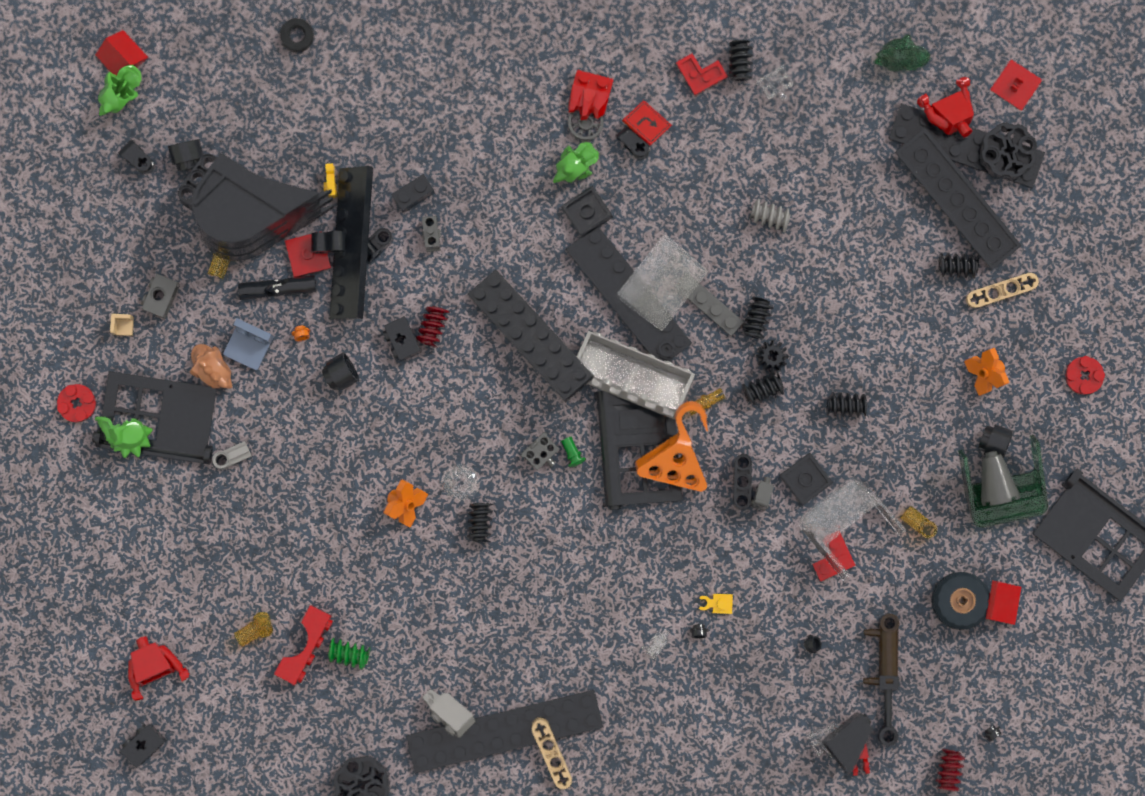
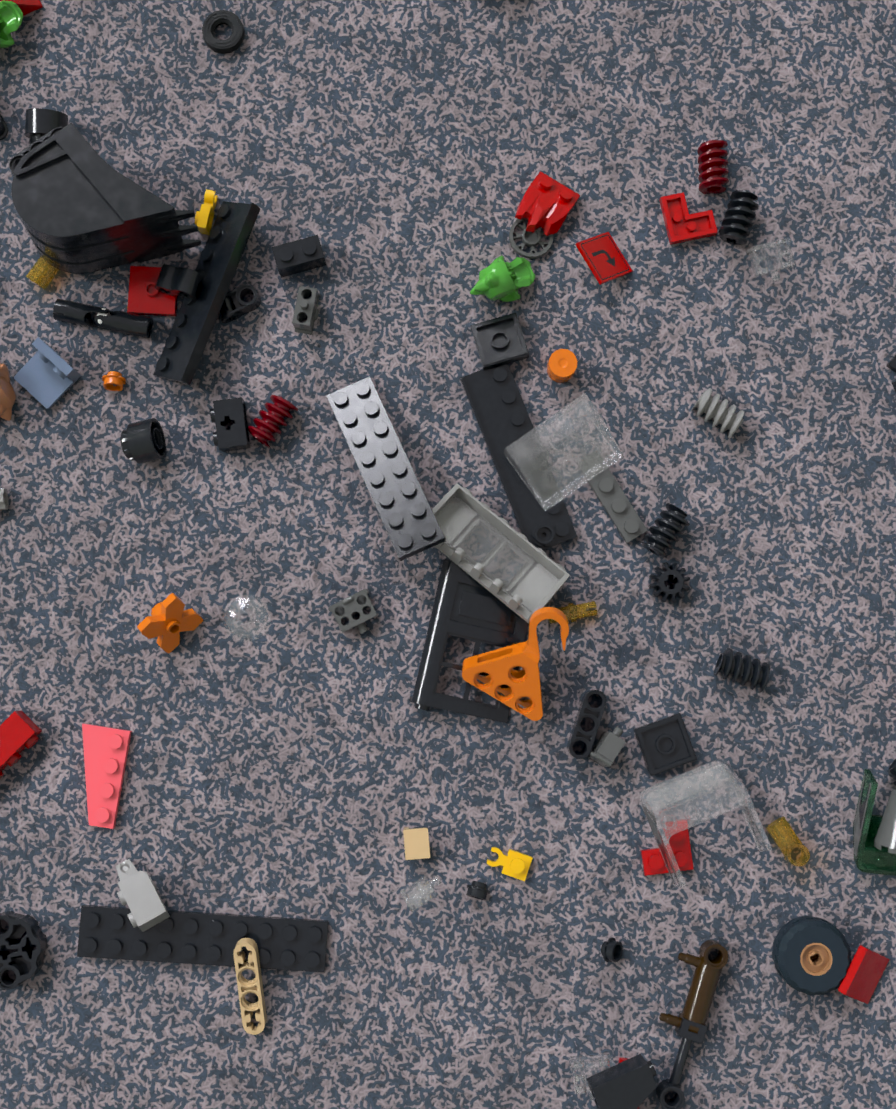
camera: 15 degrees right, 0 degrees up
(348, 654) = (42, 786): green piece -> none
(389, 627) = (104, 771): none -> coral wing
(479, 522) = (253, 674): black piece -> none
(574, 455) = (392, 624): green pin -> none
(632, 141) = (580, 274): black piece -> none
(640, 216) = (562, 365): none -> orange piece
(642, 609) = (416, 843): none -> tan panel
(707, 26) = (711, 166): none -> dark red piece
(763, 388) = (646, 618): black piece -> none

